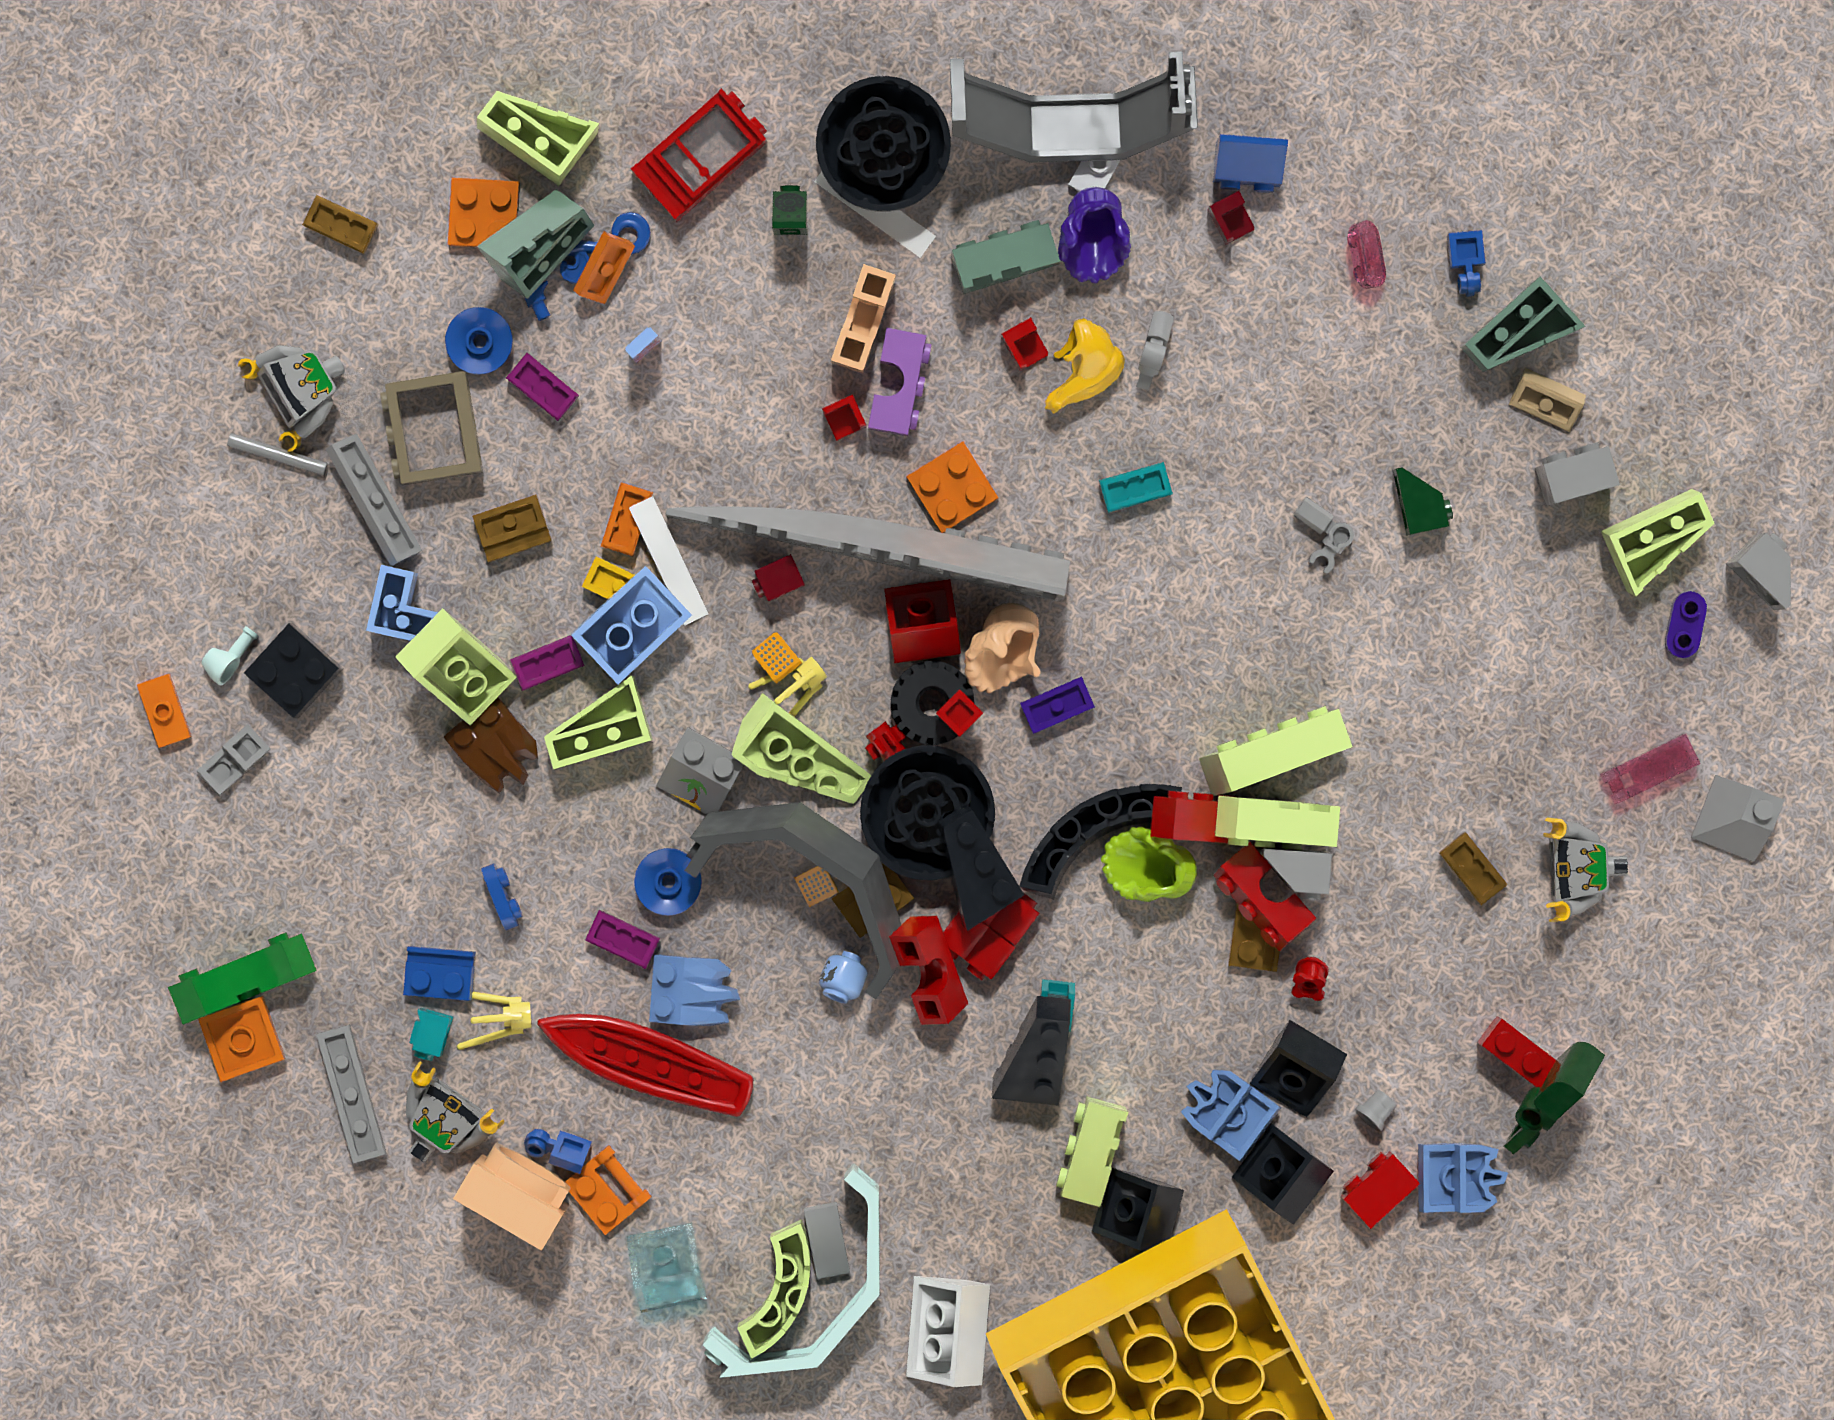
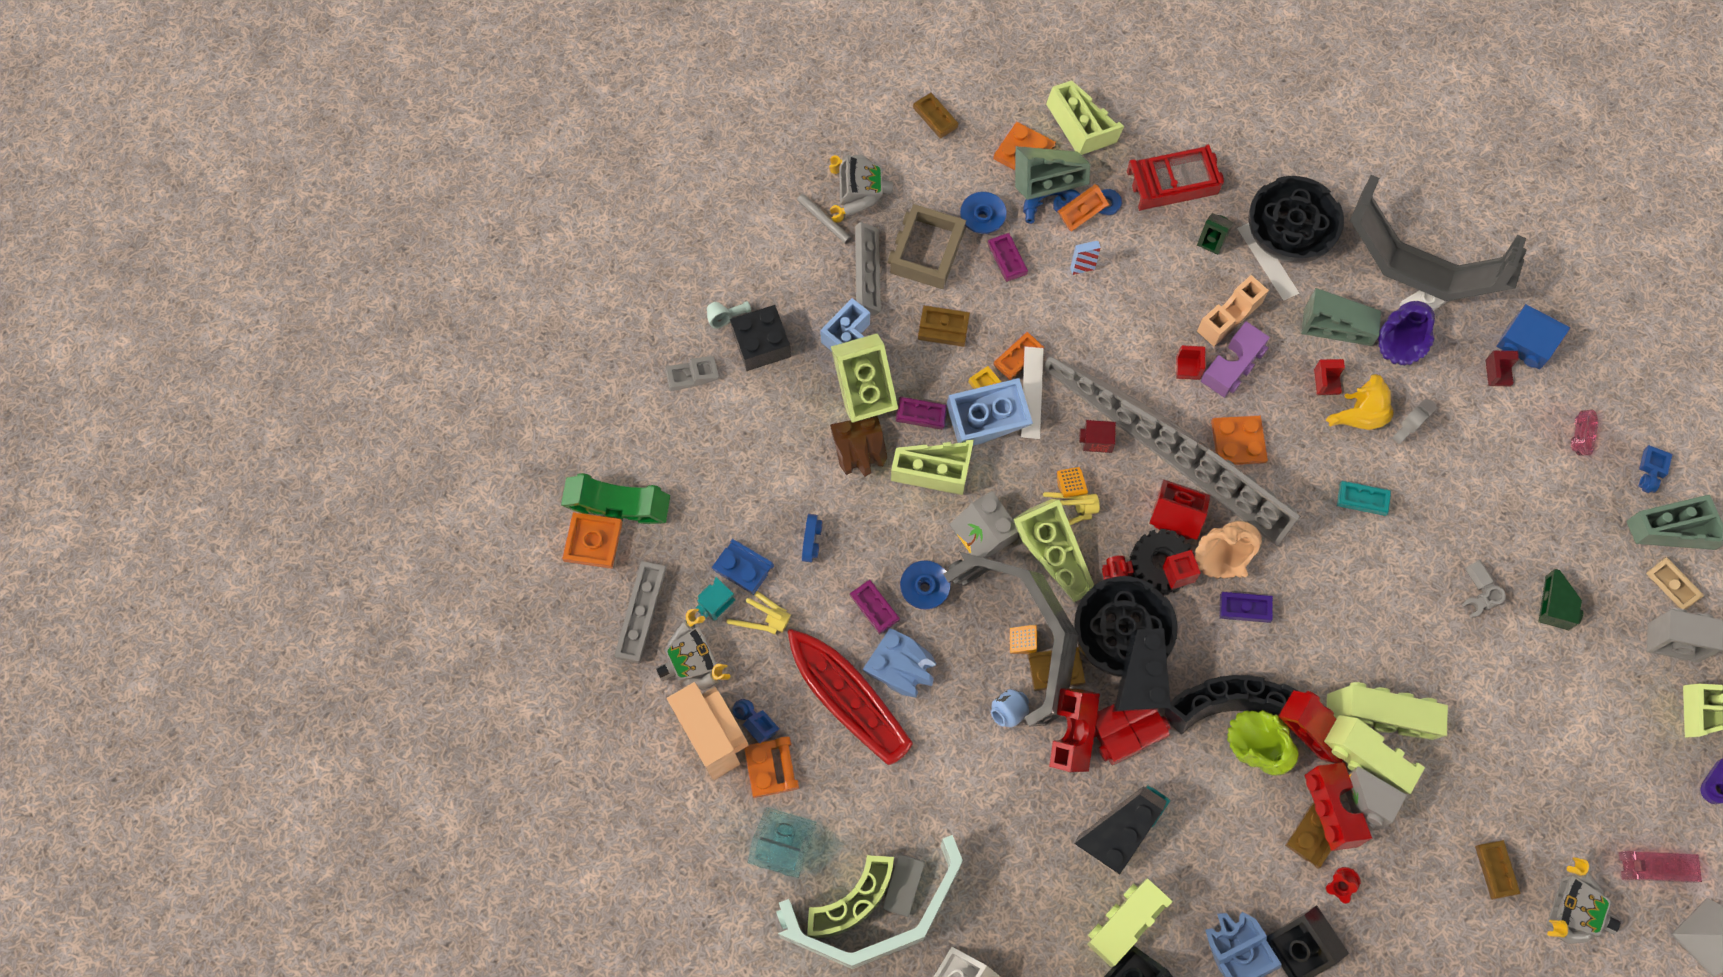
camera: 30 degrees right, 20 degrees down
(164, 710) = (667, 325): orange plate -> none

